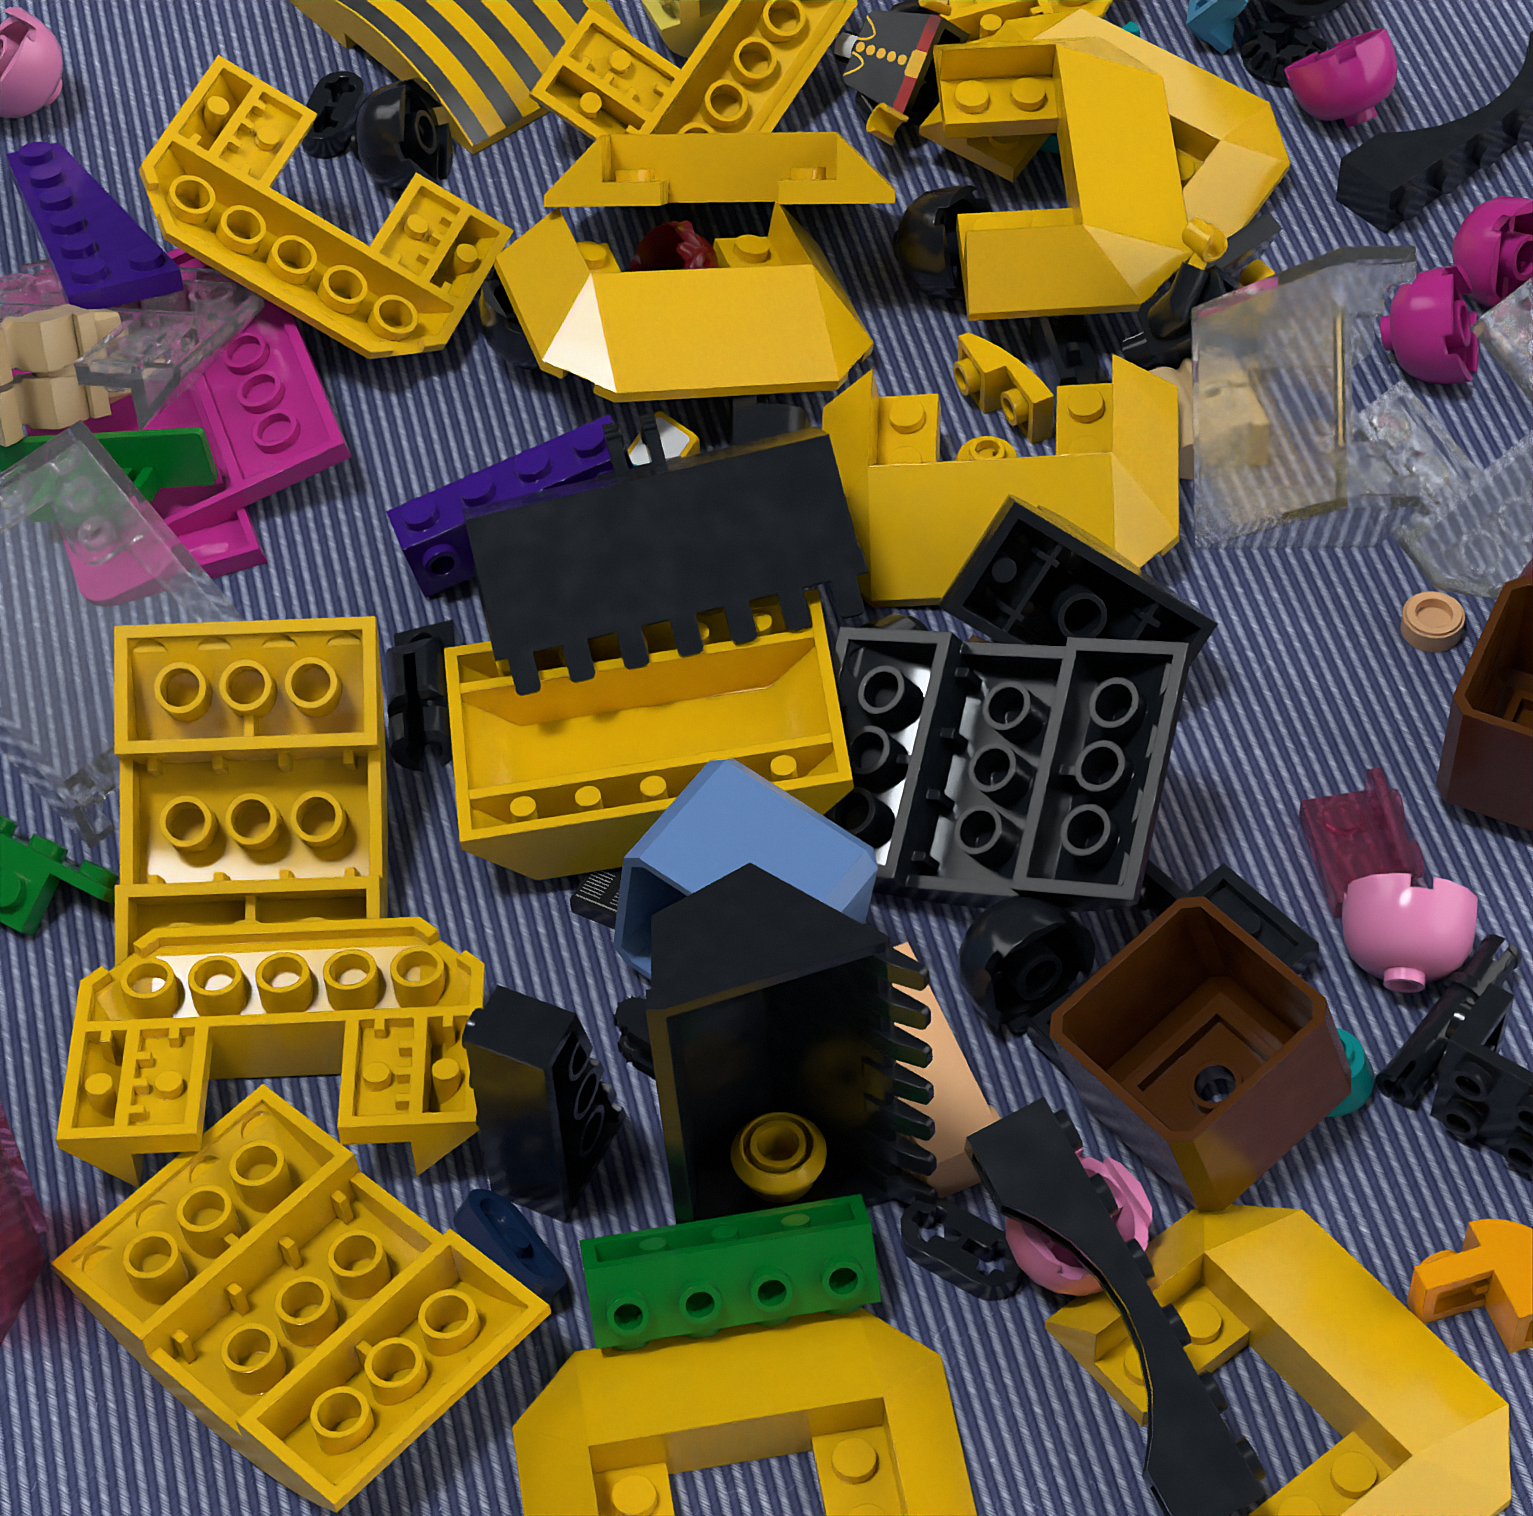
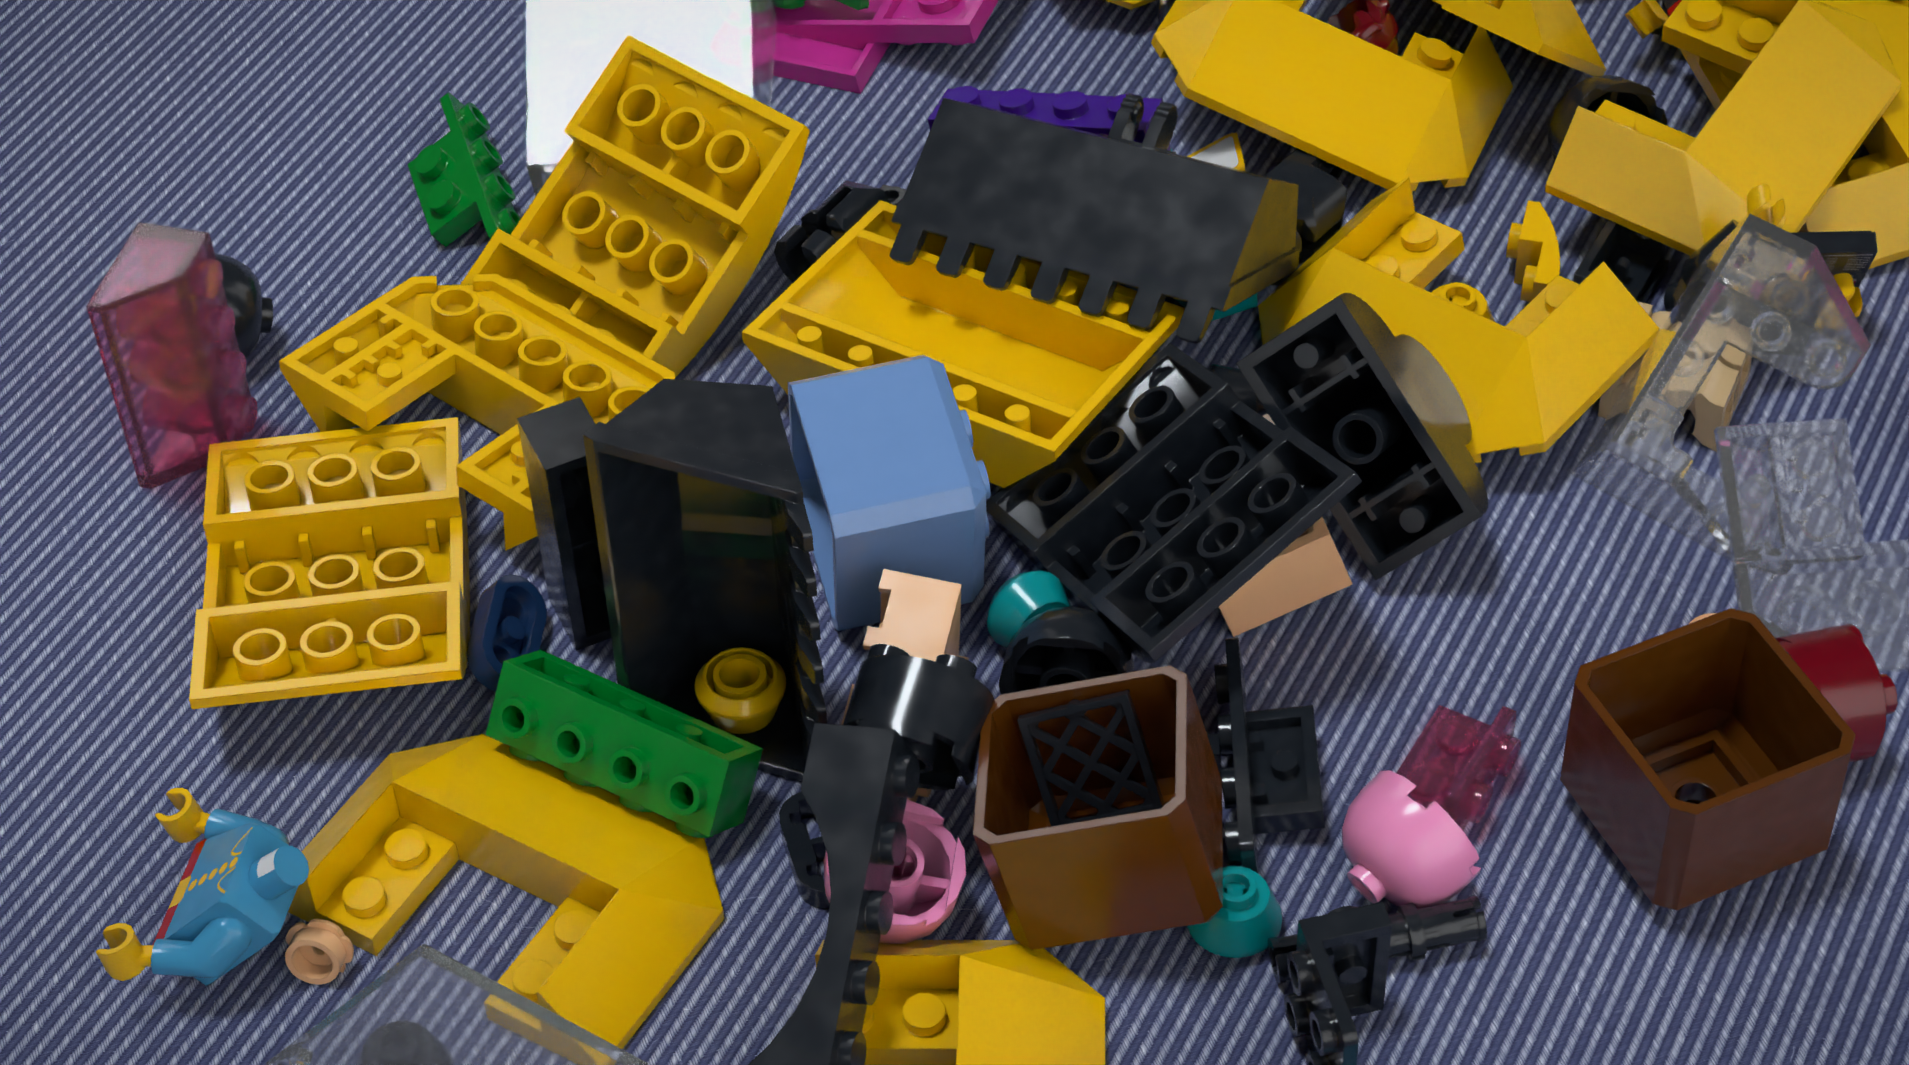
camera: 40 degrees right, 5 degrees down
(933, 929) = (1022, 599): none -> teal cone
(1001, 1070) = (931, 706): none -> black brick
(1125, 987) = (1075, 713): none -> black window

